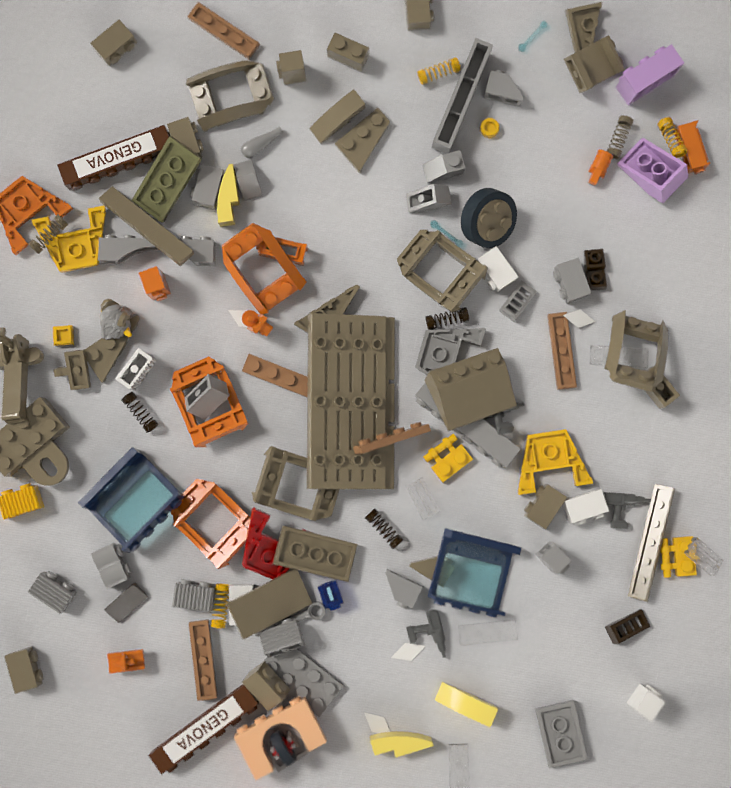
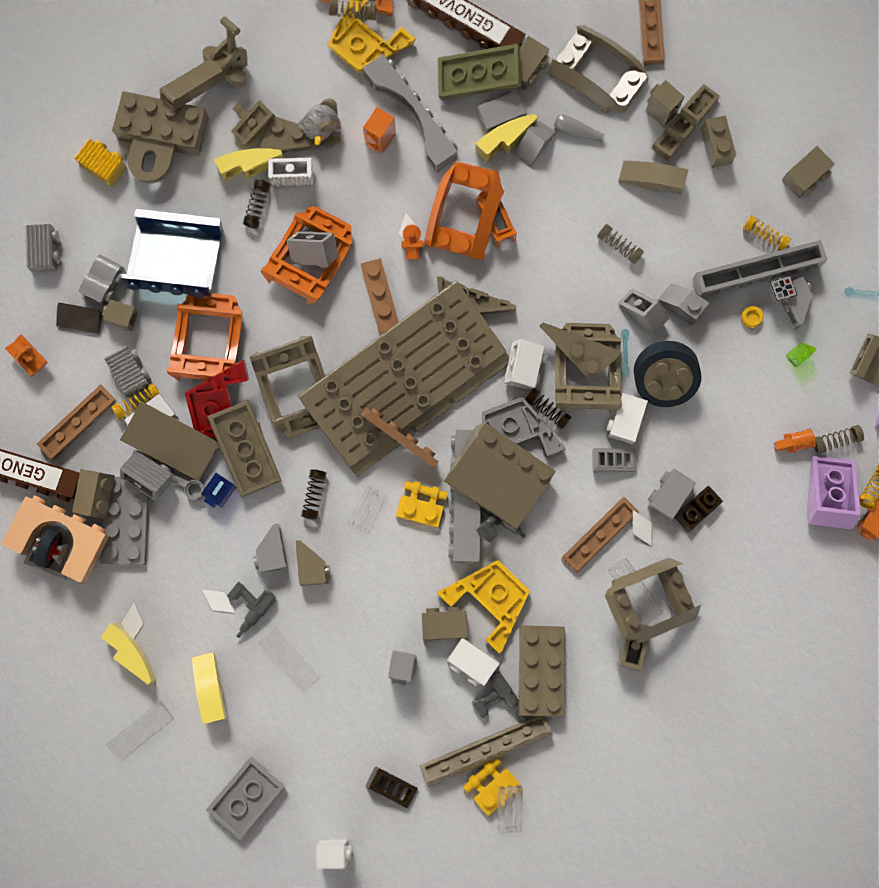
camera: 55 degrees right, 5 degrees down
(63, 335) = (274, 90): yellow tile -> none
(103, 394) = (246, 161): none -> light yellow slope
(146, 226) = (424, 86): dark tan tile -> none
(147, 571) = (120, 315): none -> dark tan brick
(315, 63) = (685, 122): none -> dark tan slope
(362, 139) = (652, 213): dark tan wing -> none
(384, 173) = (606, 231): none -> dark tan piece
(404, 311) = (524, 364): none -> white brick
(432, 262) = (586, 354): none -> dark tan wing
(471, 572) = (332, 602): clear light blue panel -> none
(489, 91) = (782, 289): none -> tile
(541, 115) = (800, 354): none -> clear neon green slope
(626, 463) = (541, 671): none -> dark tan plate

